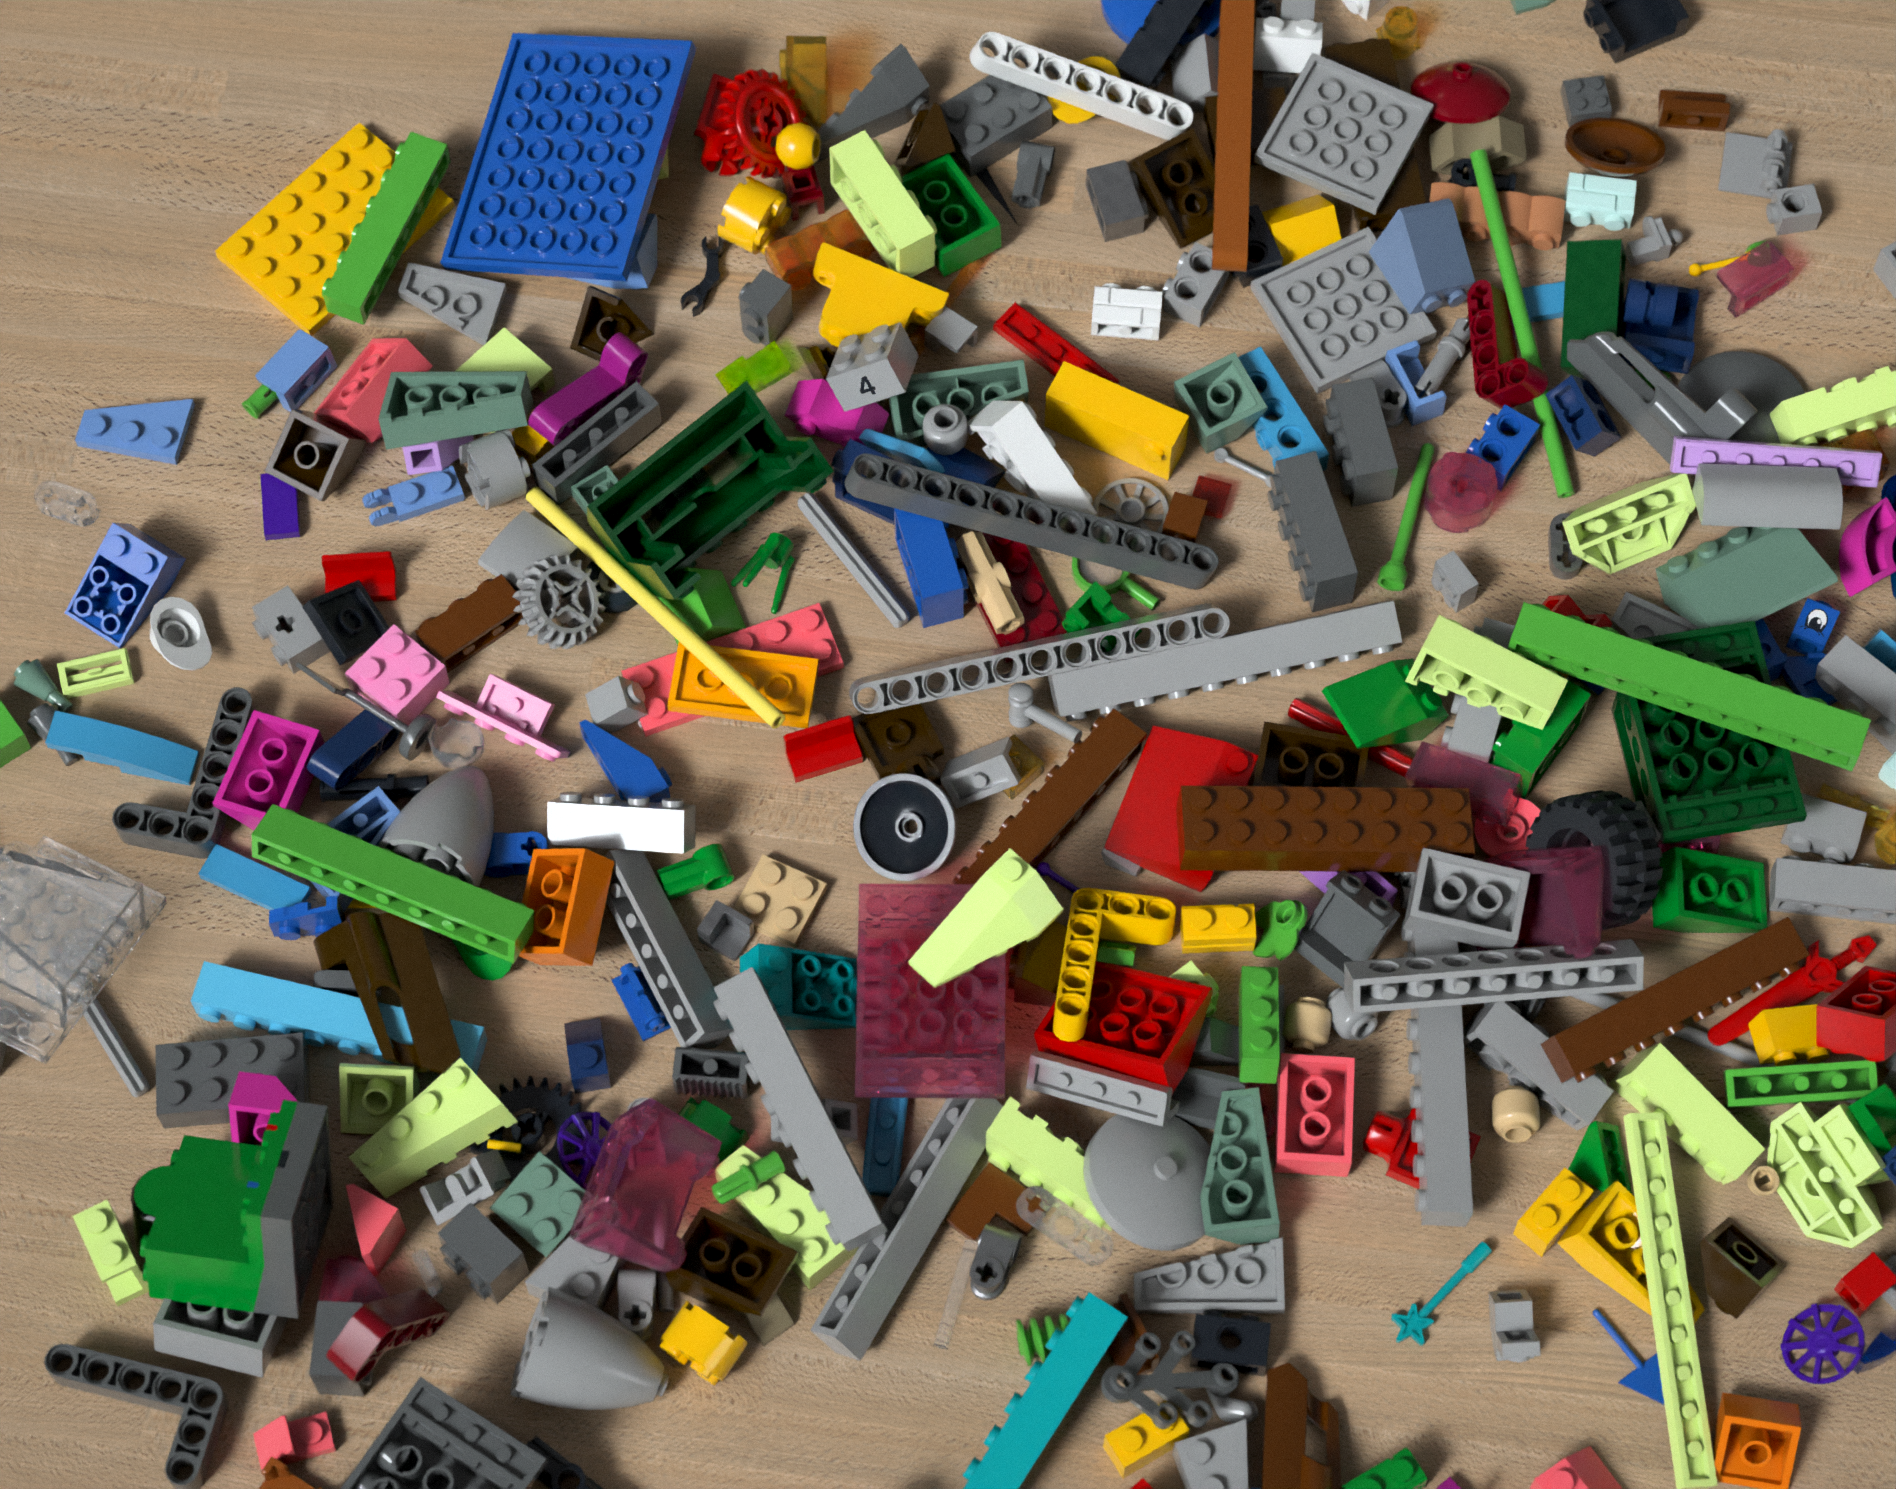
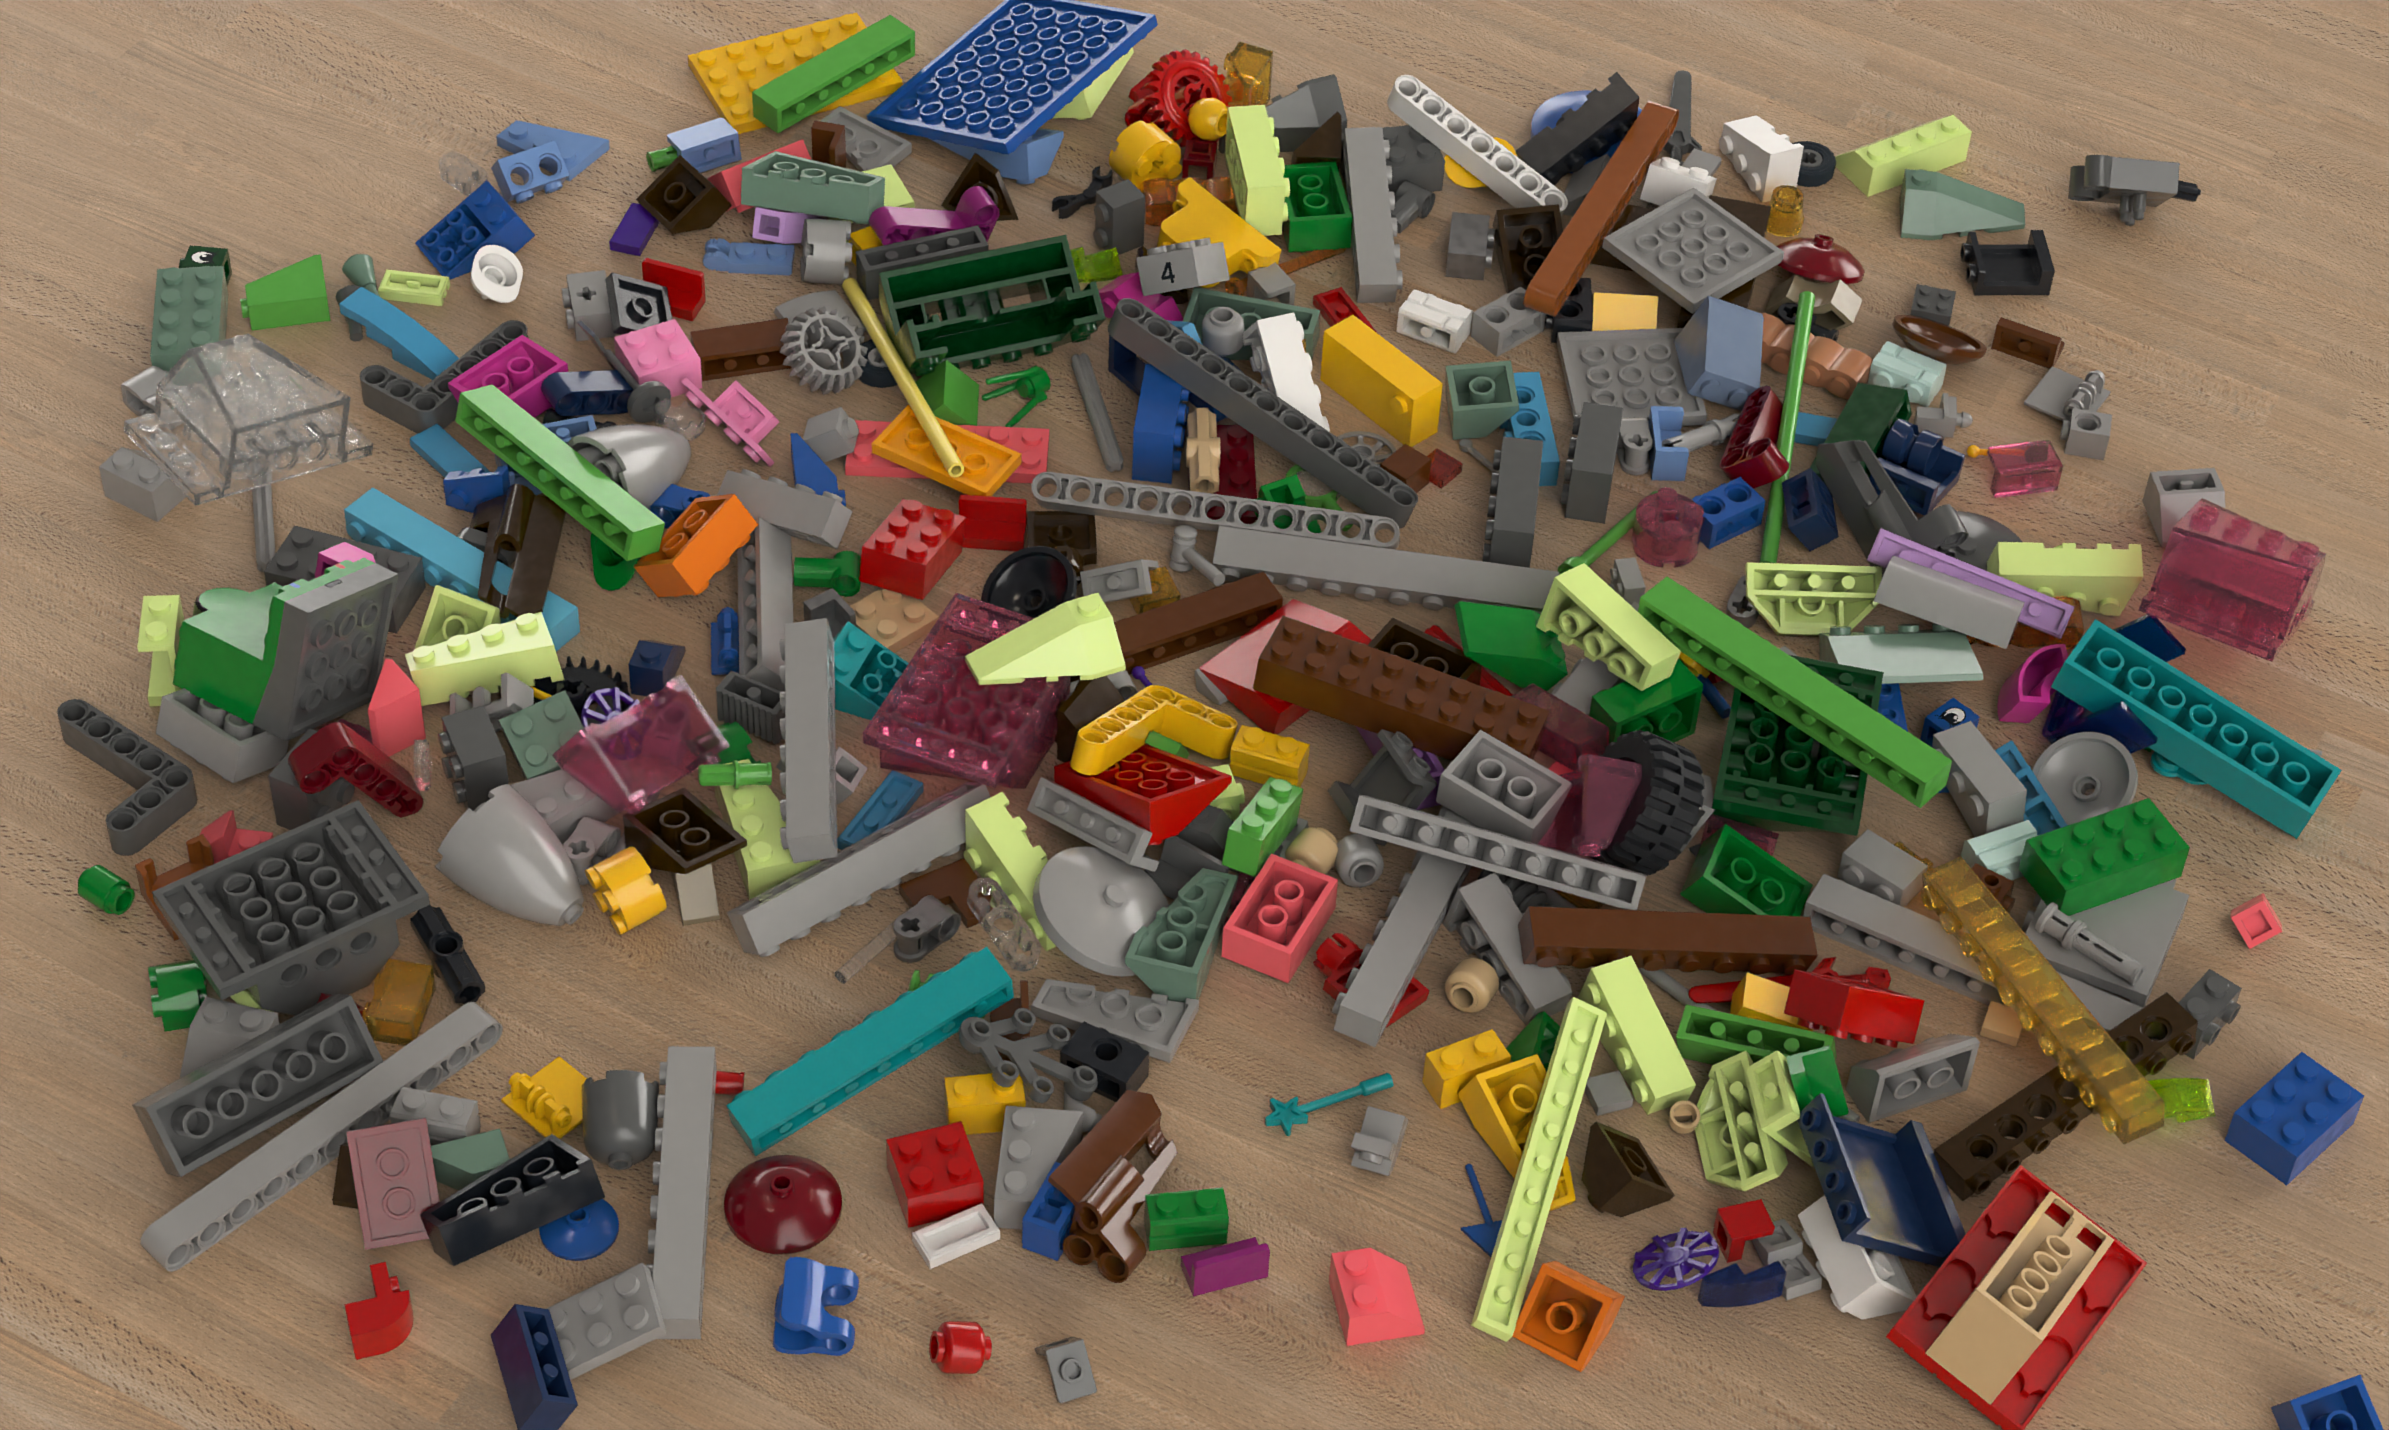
camera: 20 degrees right, 20 degrees down
(135, 473) = (527, 166): none -> medium blue brick
(434, 336) = (828, 143): none -> reddish brown panel
(767, 818) = (912, 549): none -> red brick
(1008, 196) = (1371, 210): none -> light grey brick
(1281, 928) = (1335, 768): bright green plate -> none
(1687, 1178) = (1608, 1093): none -> light grey tile

